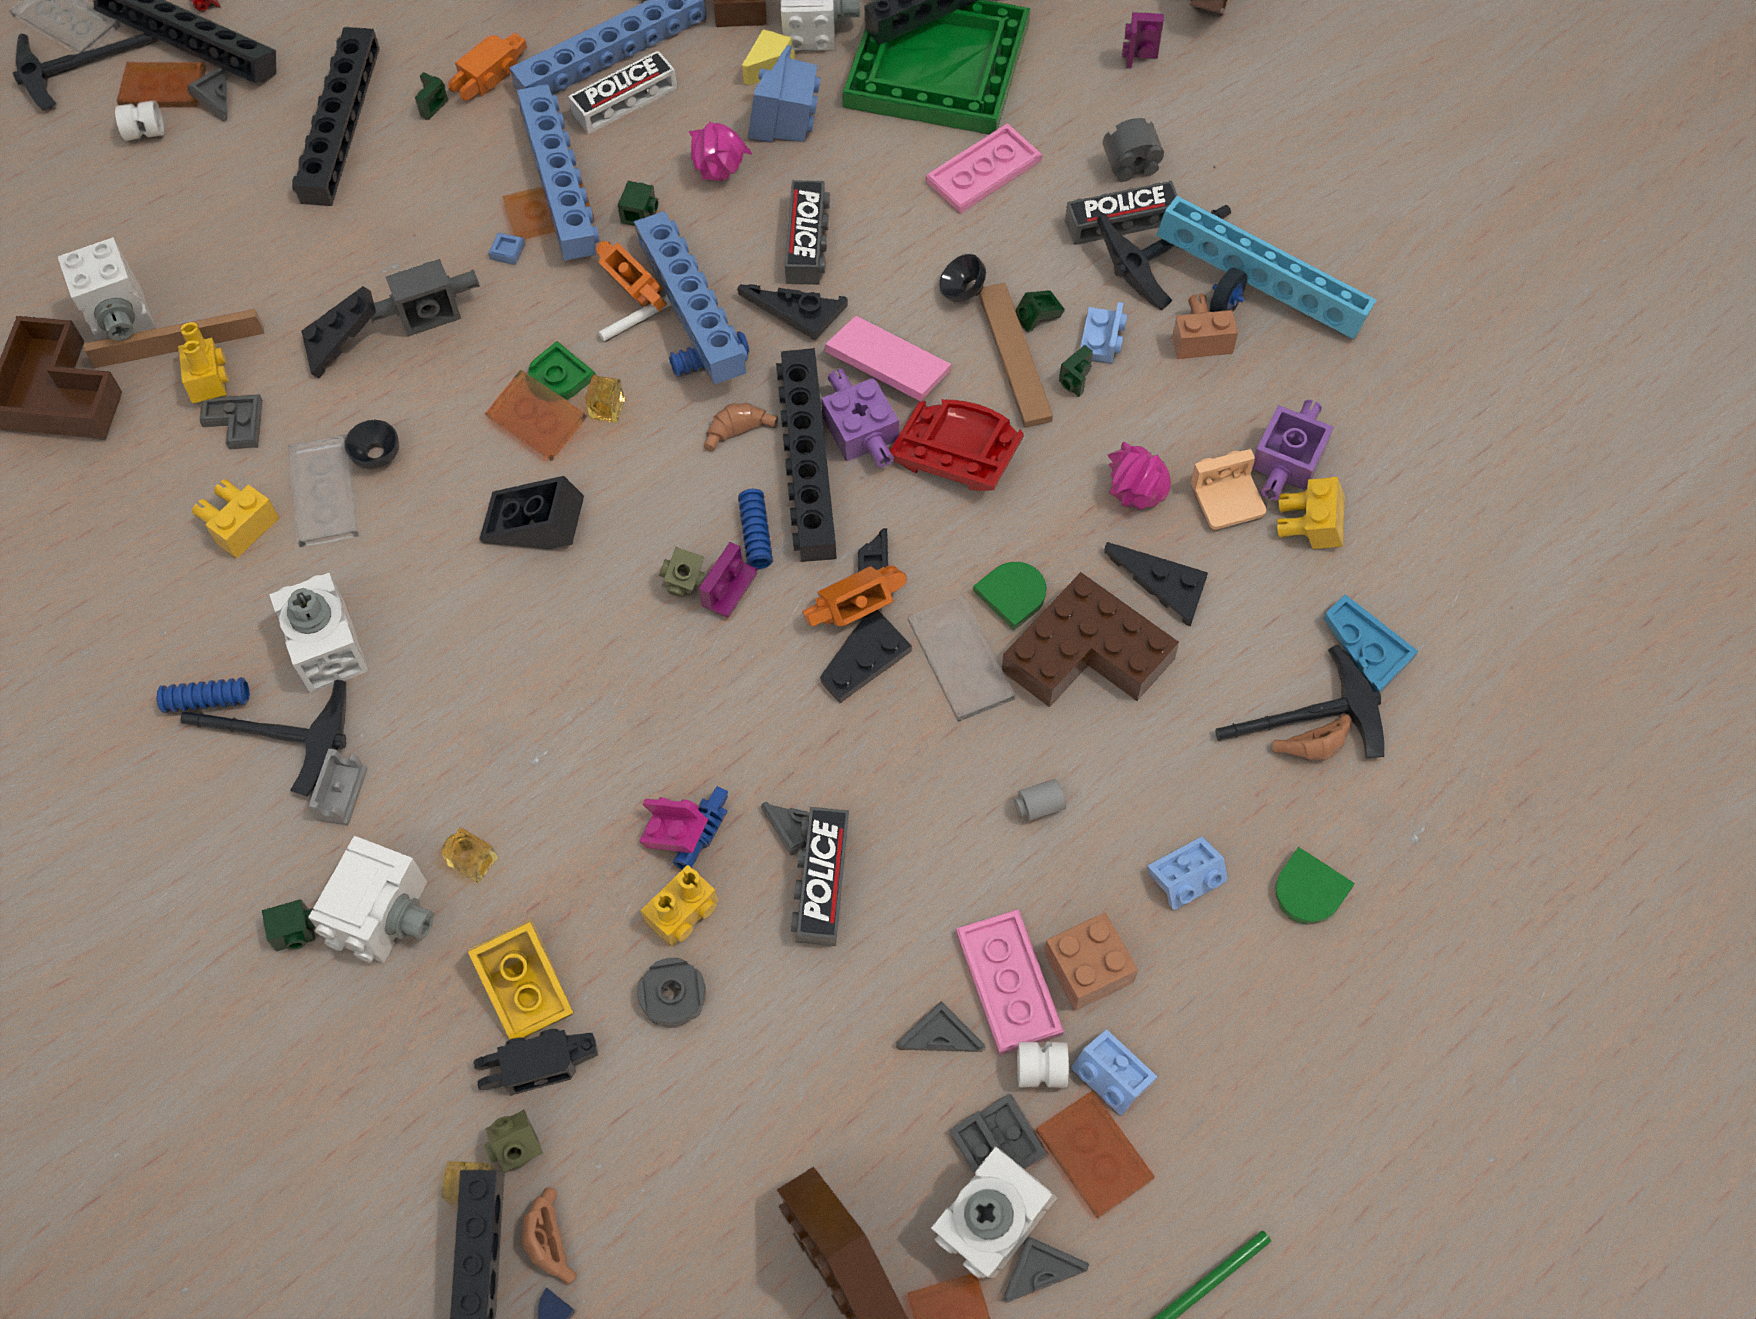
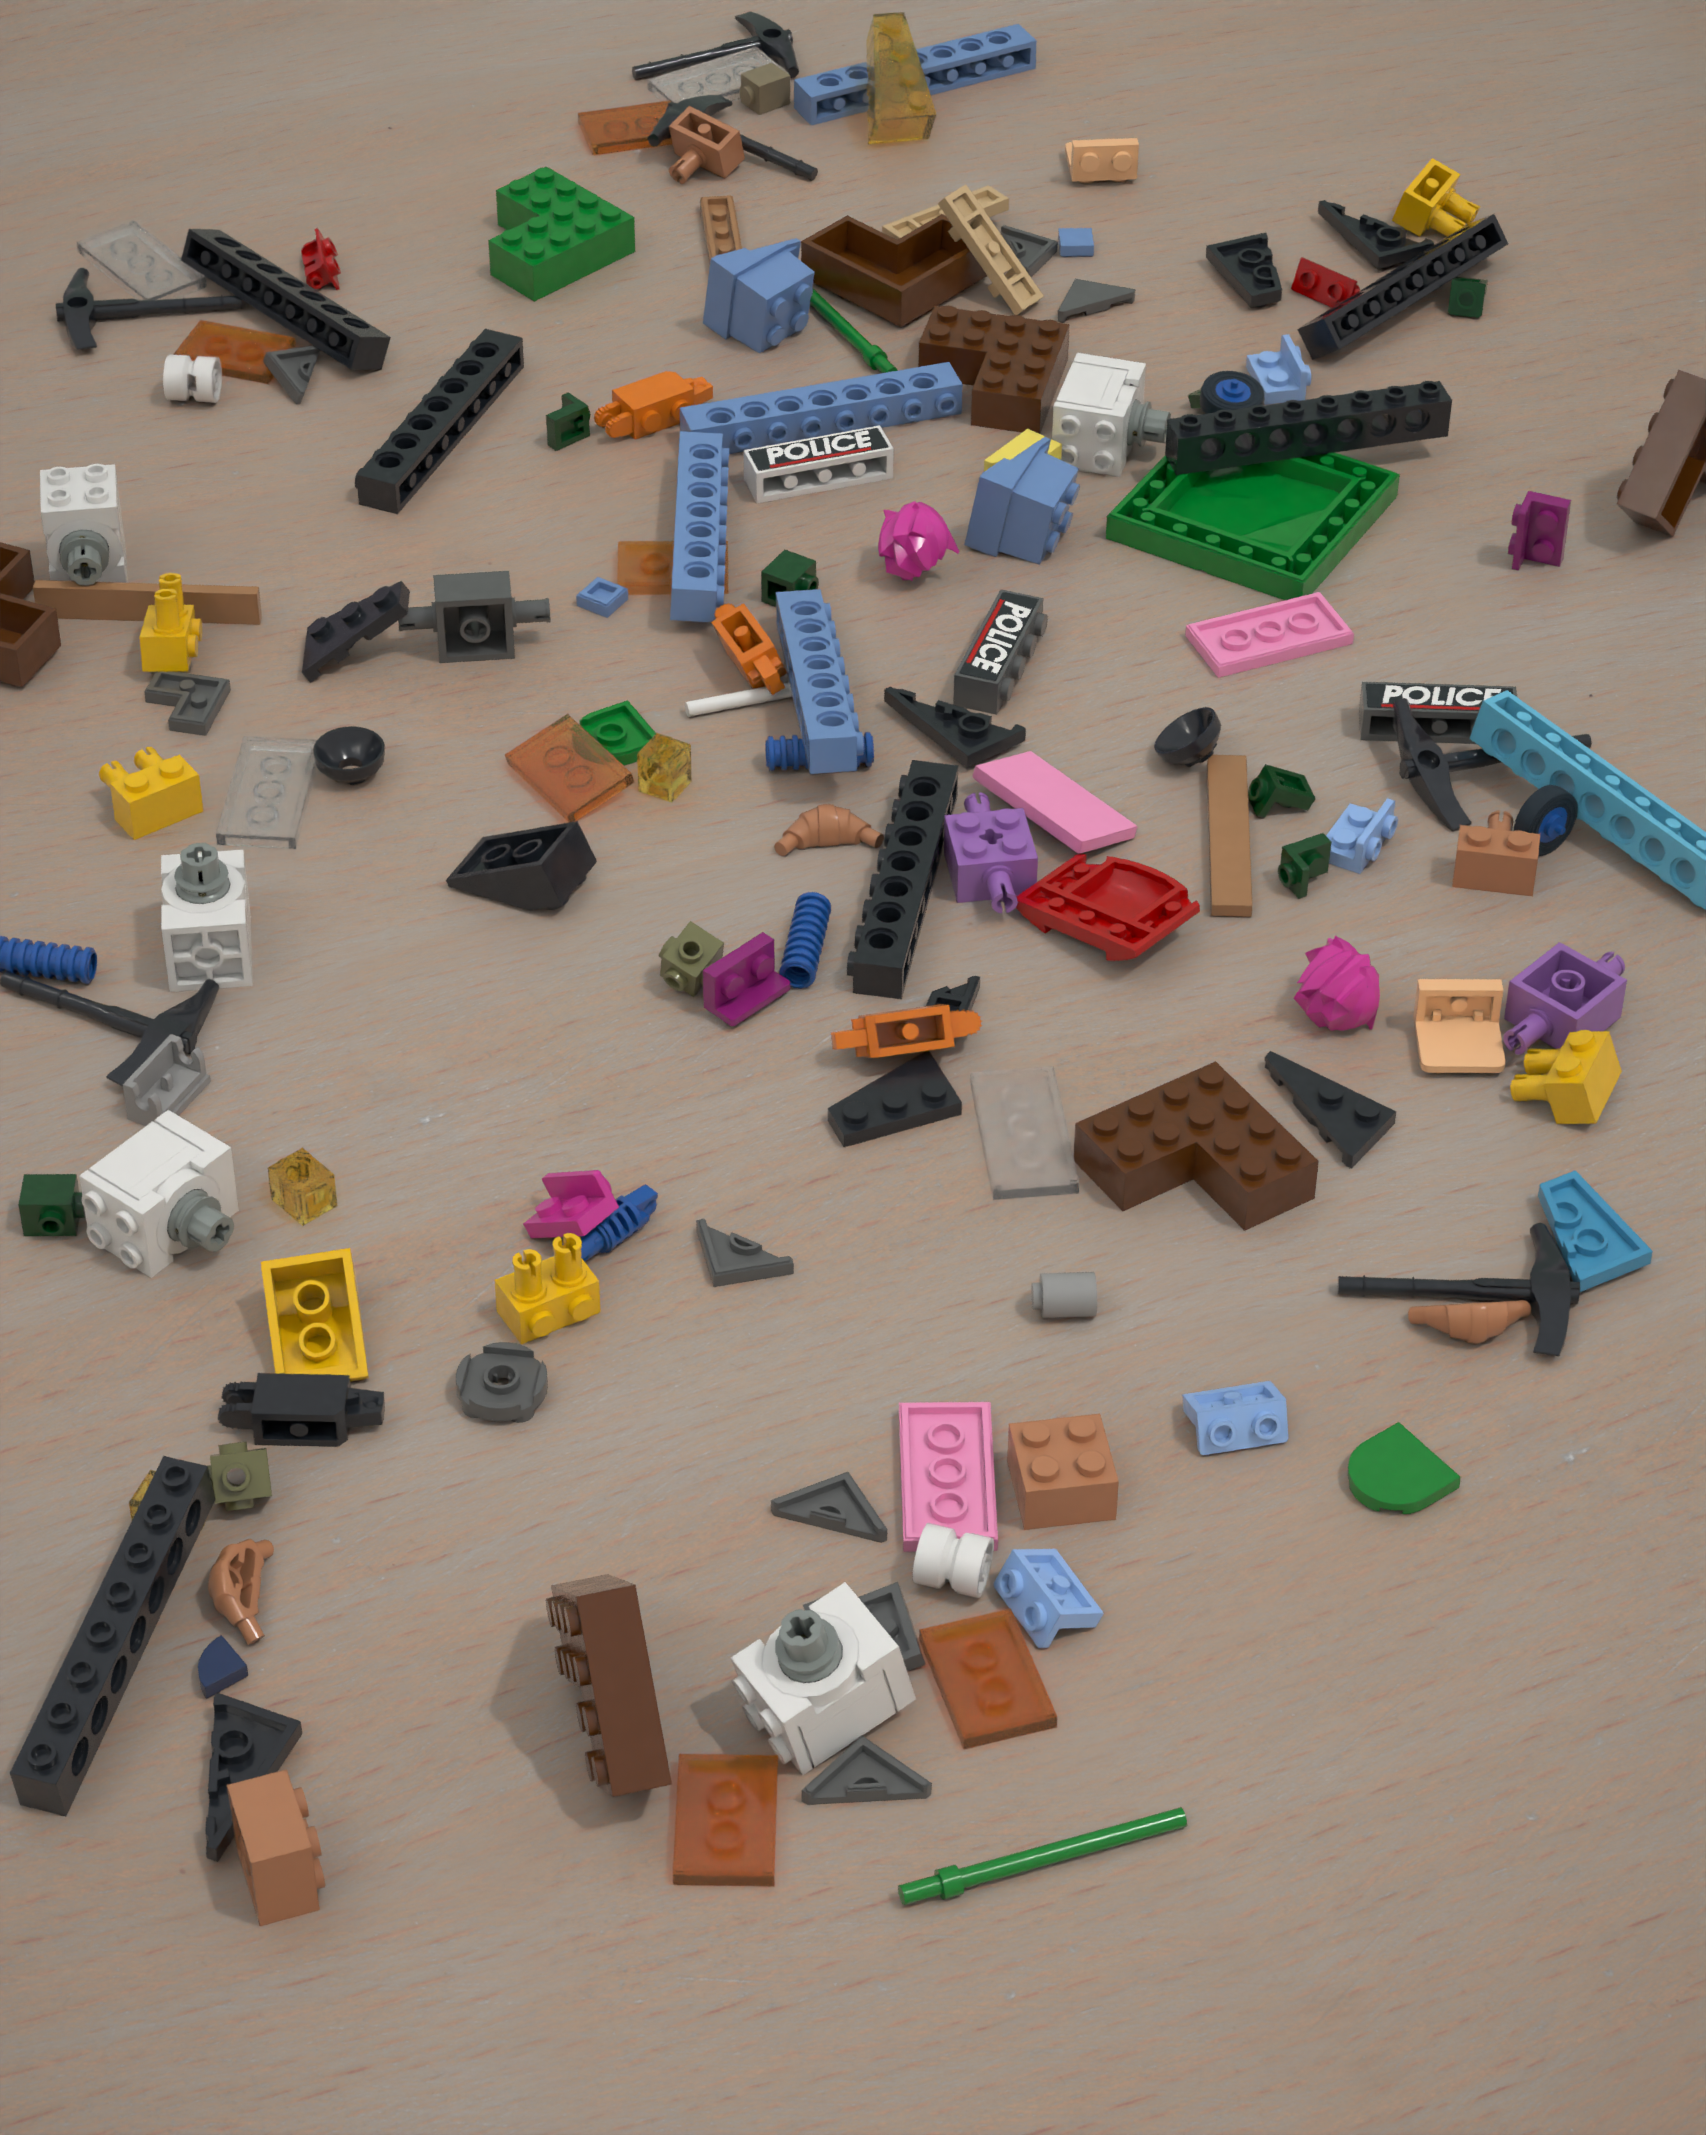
camera: 15 degrees right, 20 degrees down
(822, 876) = (742, 1303): brick -> none
(1013, 592) = (1119, 1073): green tile -> none
(1133, 149) = (1477, 644): dark grey brick -> none

